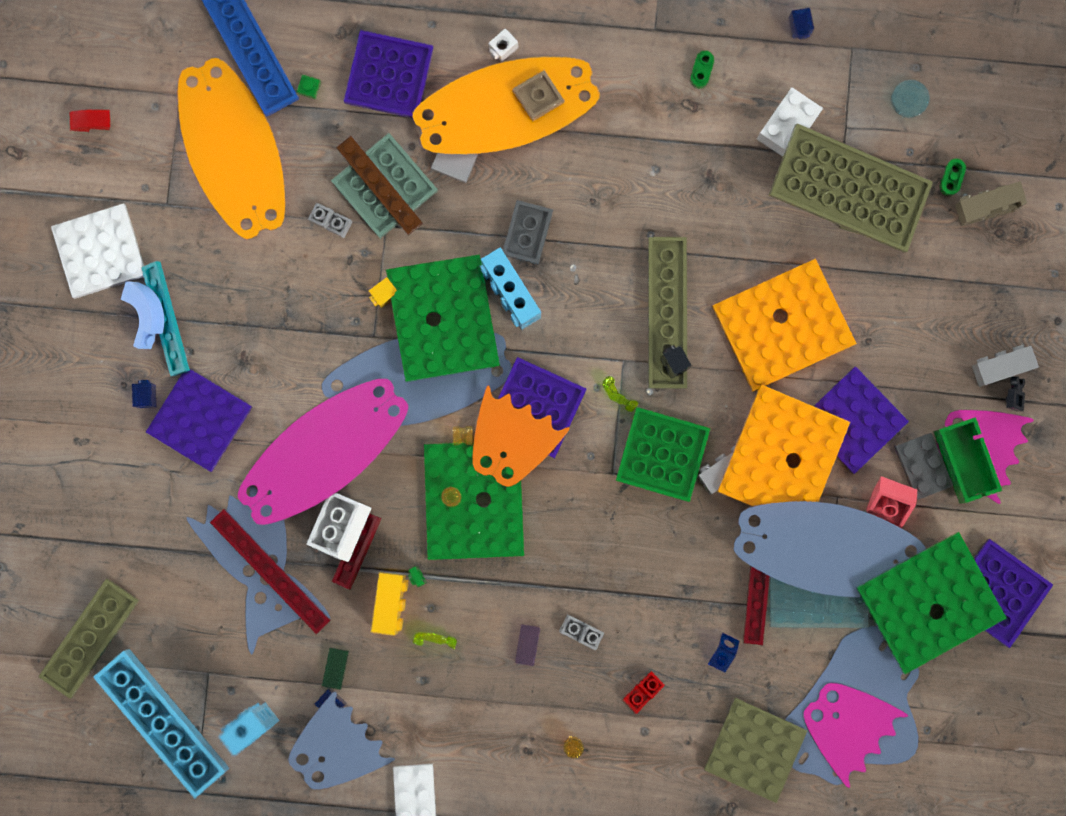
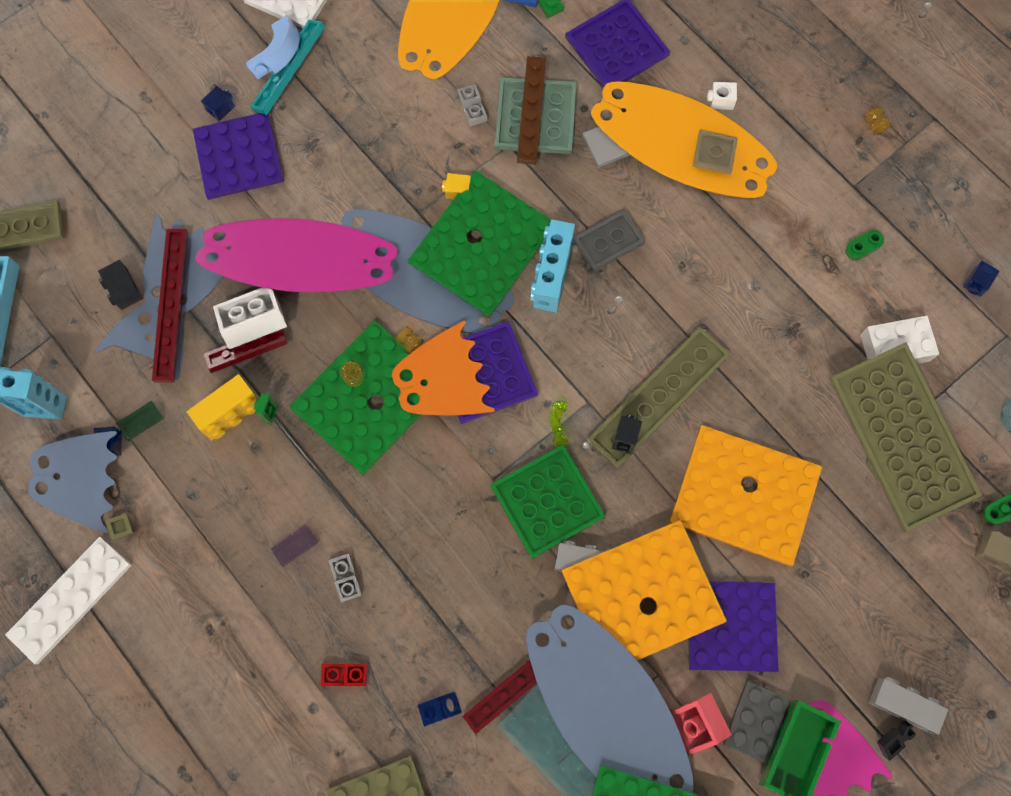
camera: 50 degrees right, 10 degrees down
(219, 592) = (119, 284): none -> black brick
(400, 748) = (119, 527): none -> olive plate
(435, 638) = (241, 484): clear neon green arm -> none
(573, 747) = (240, 660): clear yellow wheel -> none

